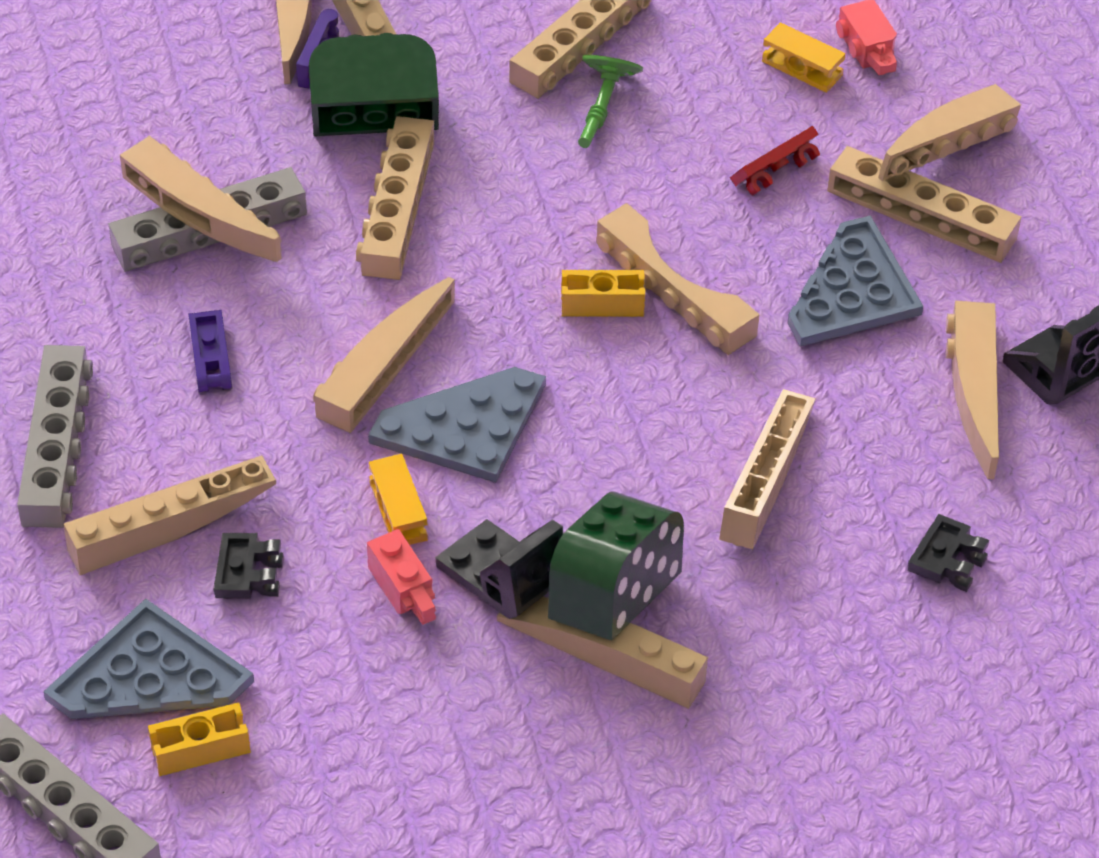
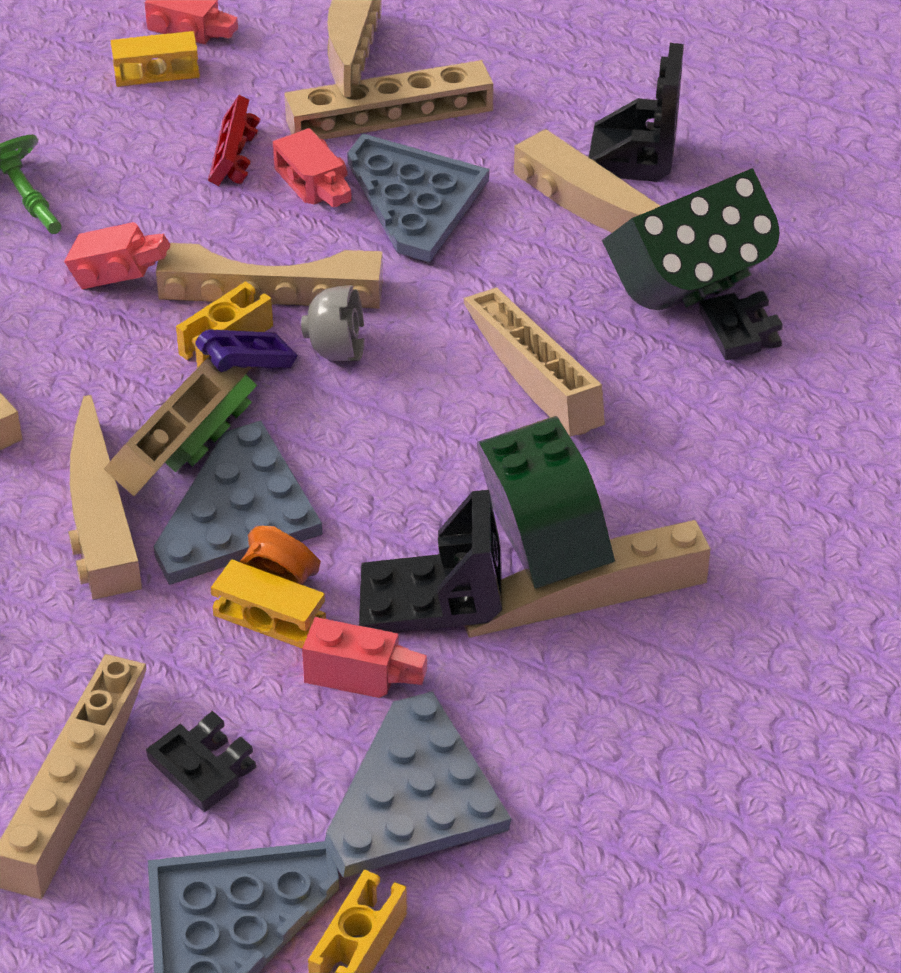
camera: 45 degrees left, 5 degrees down
(333, 685) = (413, 793): none -> sand blue plate
(430, 476) = (280, 554): none -> orange hat
(490, 333) = (172, 425): none -> tan slope
(511, 356) = (213, 425): none -> bright green plate
(585, 189) = (114, 255): none -> coral hinge
(585, 319) = (245, 349): none -> dark purple plate
(667, 346) = (335, 324): none -> light grey cylinder
(803, 218) = (311, 168): none -> coral hinge
(970, 467) = (695, 243): none -> dark green brick

